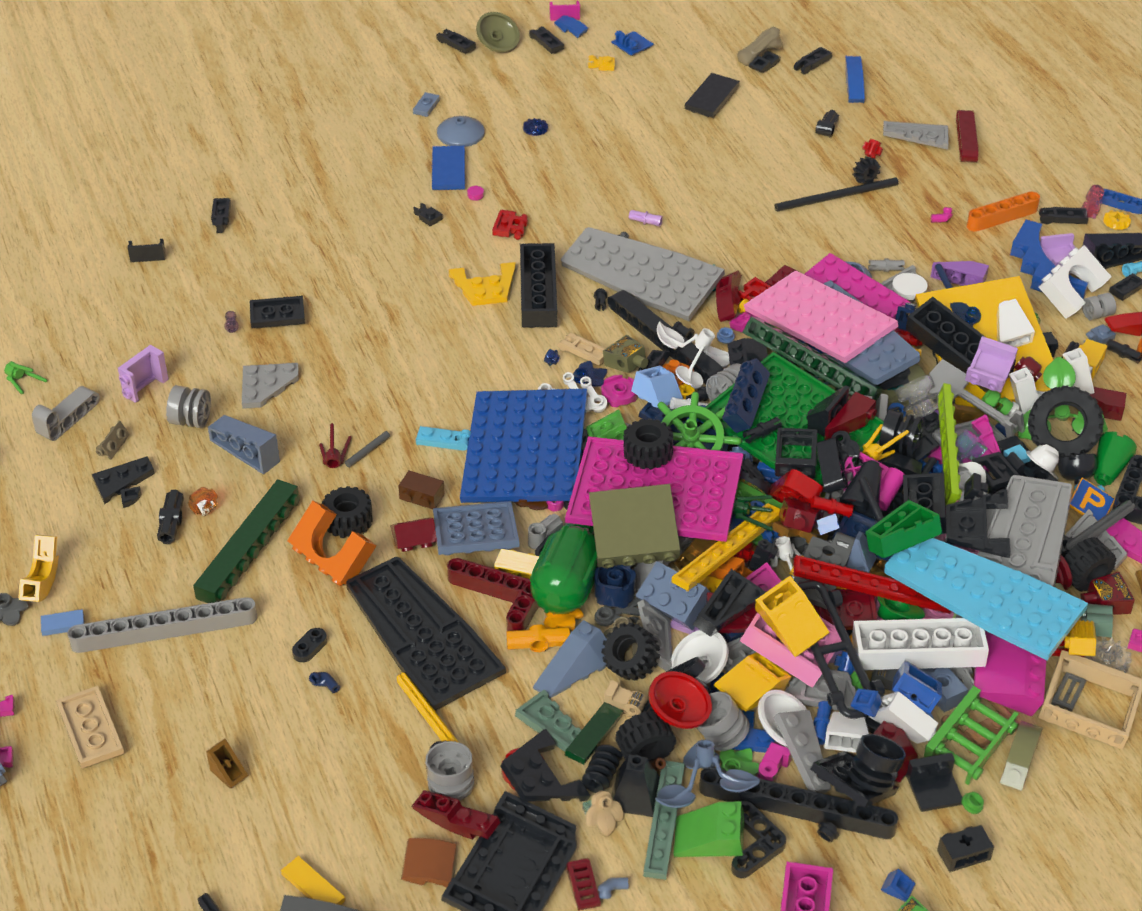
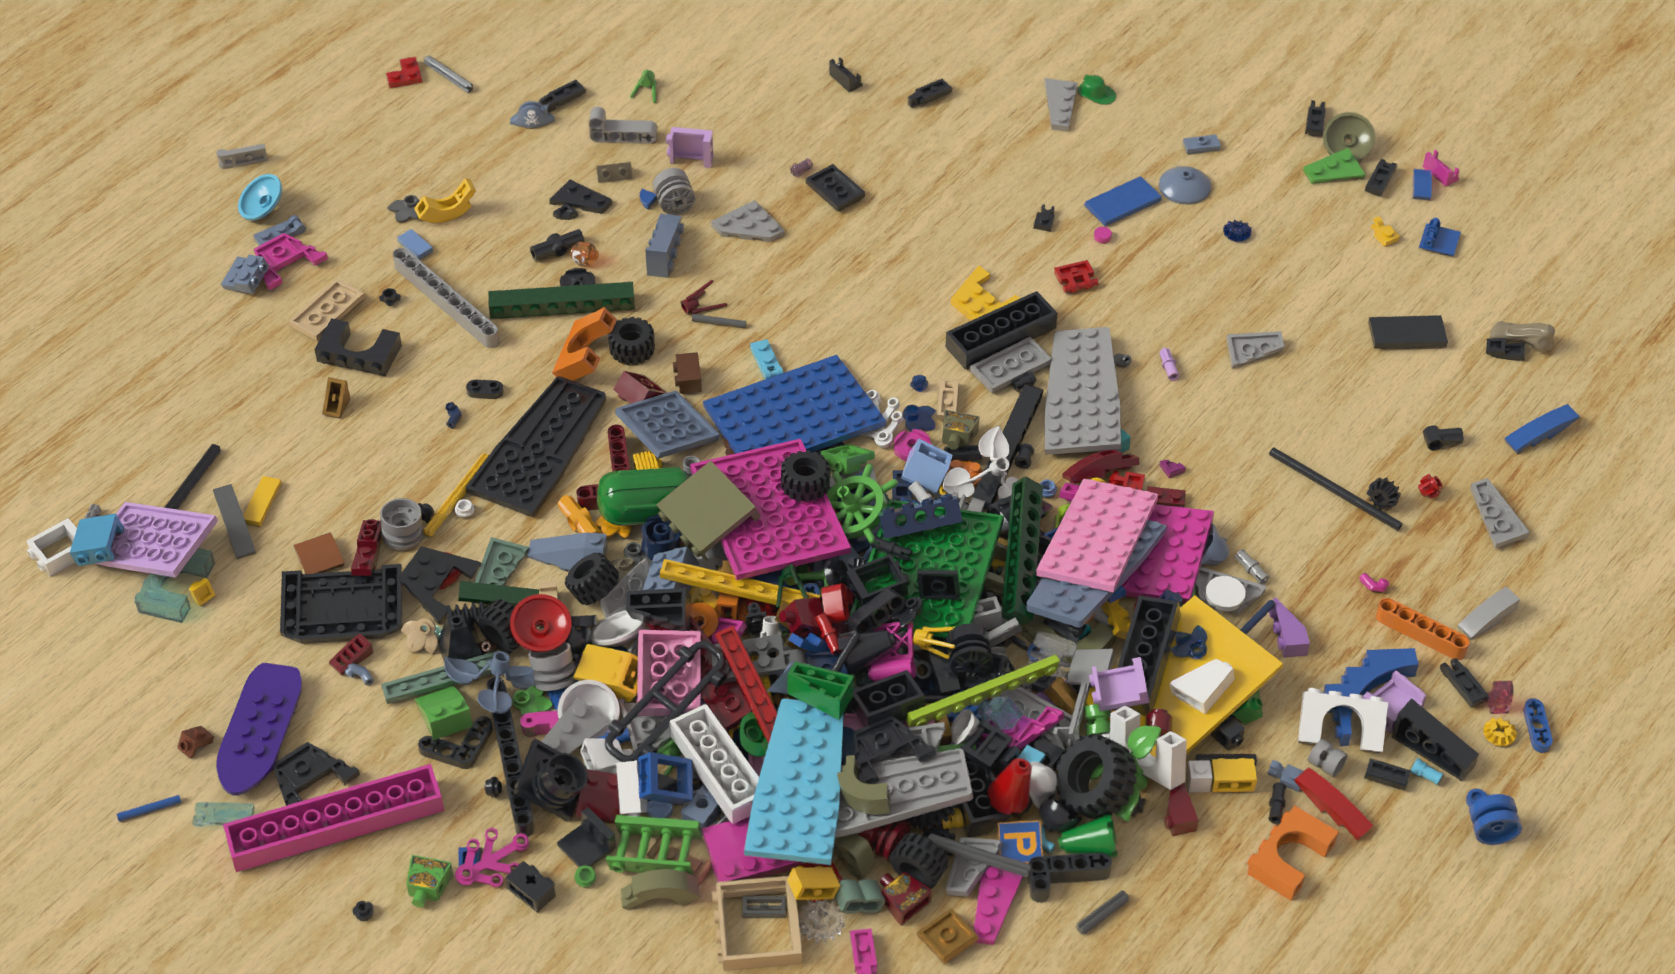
camera: 60 degrees right, 5 degrees up
(118, 669) = (389, 296): none -> black plate
(155, 742) = (373, 360): none -> black arch
(167, 433) = (647, 198): none -> blue tile
(227, 522) = (577, 276): none -> black tile
(306, 151) = (1060, 103): none -> light grey wing
(310, 128) = (1096, 90): none -> green piece
(456, 719) = (464, 508): none -> white plate
(517, 54) = (1333, 167): none -> bright green wing
(576, 298) = (1010, 364): none -> light grey plate
(664, 170) = (1253, 346): none -> light grey wing
(753, 264) = (1172, 469): none -> magenta tile
(791, 616) = (662, 650): yellow slope -> none
(812, 60) = (1545, 384): black hinge -> none
(853, 415) = (948, 601): dark red slope -> none
(867, 702) = (623, 750): blue slope -> none
(921, 891) = (489, 860): none -> dark pink plant
(967, 136) = (1529, 555): dark red beam -> none
(974, 487) = (928, 728): black tile -> none
(1009, 174) = (1489, 613): none -> light grey slope
(1023, 558) = (863, 797): none -> olive arch
(1054, 463) = (1012, 787): none -> red cone

